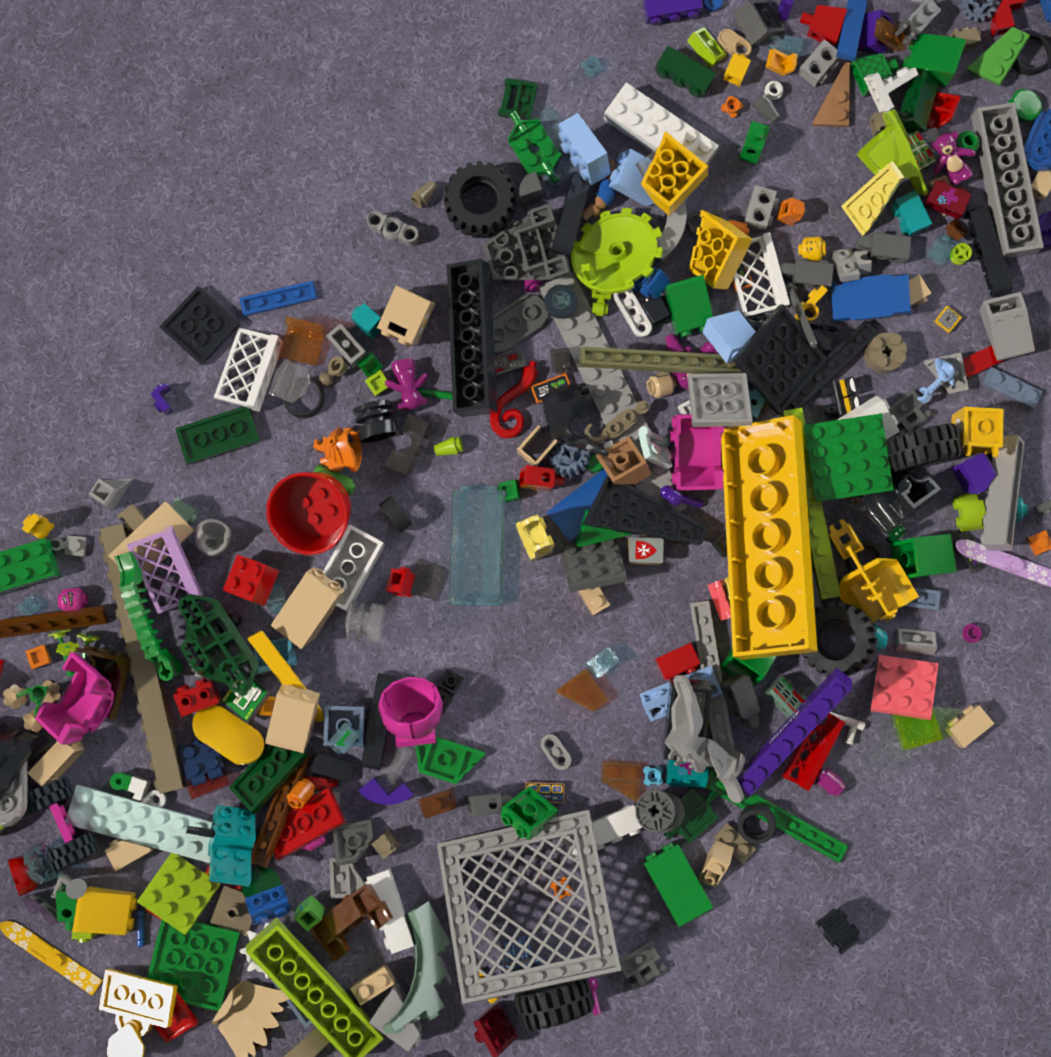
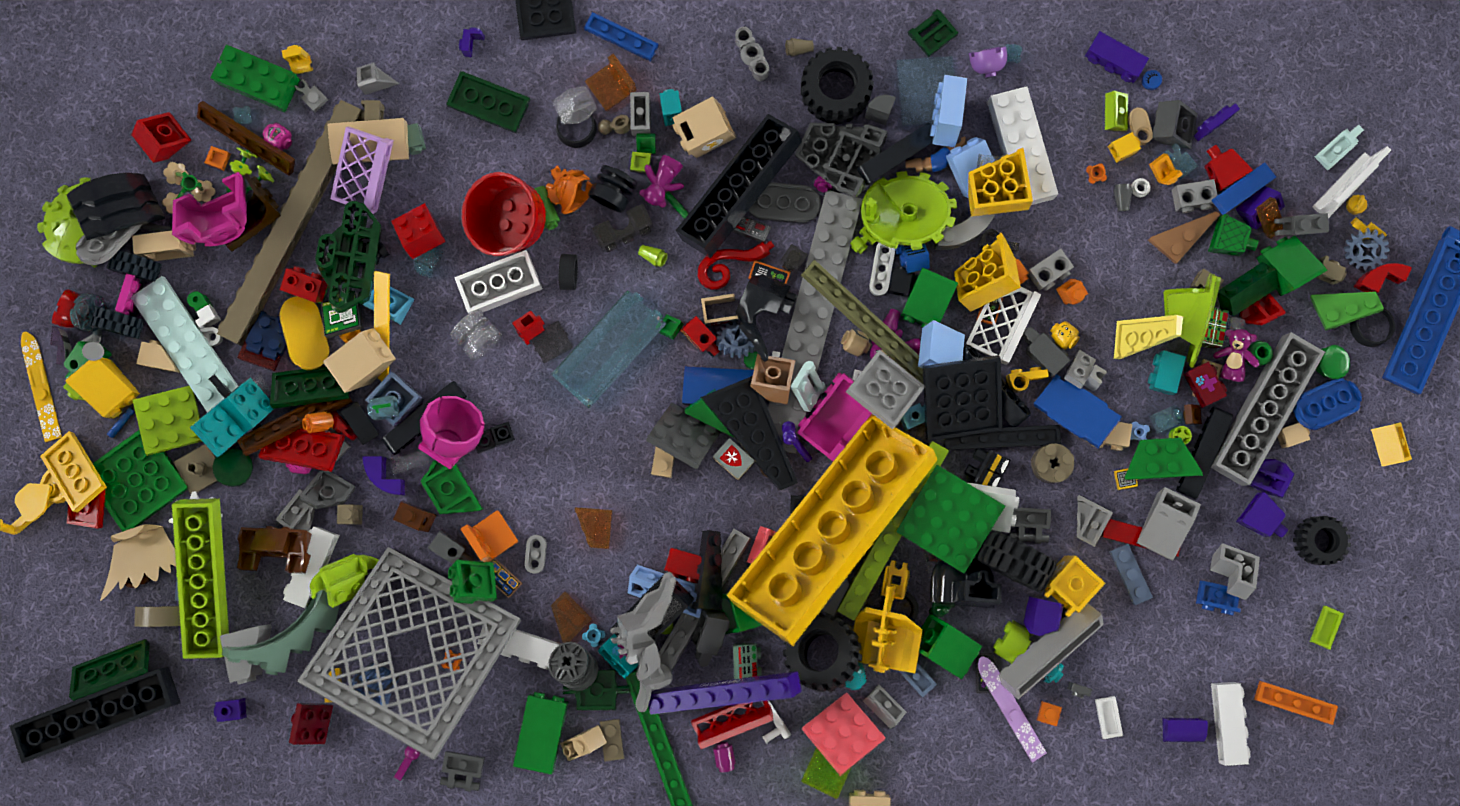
camera: 45 degrees right, 0 degrees up
(131, 575) = (303, 242): green piece -> none
(212, 537) = (417, 175): light grey piece -> none
(264, 369) = (576, 74): white fence -> none
(268, 905) = (224, 485): blue bracket -> none
(308, 608) = (439, 287): tan slope -> none
(309, 913) = (249, 516): bright green brick -> none
(373, 984) = (251, 610): tan brick -> none
(425, 897) = (342, 578): none -> lime plate
(510, 767) = (490, 537): none -> orange bracket
(530, 133) = (916, 65): green plate -> none
(534, 537) = (657, 377): light yellow brick -> none
(554, 1005) = (366, 743): black tyre -> none
(564, 295) = (832, 206): black wheel -> none
(579, 86) = (989, 60): none -> medium lavender cylinder
(602, 662) = (628, 516): clear light blue bracket -> none
(619, 424) = (796, 345): dark tan piece -> none
(684, 72) = (1081, 116): dark green brick -> none
(701, 650) = (710, 578): none -> black wing
(752, 837) = (651, 732): black tyre -> none
(755, 141) = (1090, 214): green torso -> none
(791, 291) = (1020, 352): dark grey bar -> none
(880, 88) = (1225, 254): white bracket -> none
(885, 247) = (1124, 381): dark grey hinge -> none
(929, 271) = (1143, 431): none -> light blue plate
(944, 372) = (1085, 518): light blue piece -> none
(963, 282) = (1162, 460): none -> green wing
(972, 633) = (934, 737): magenta plate -> none

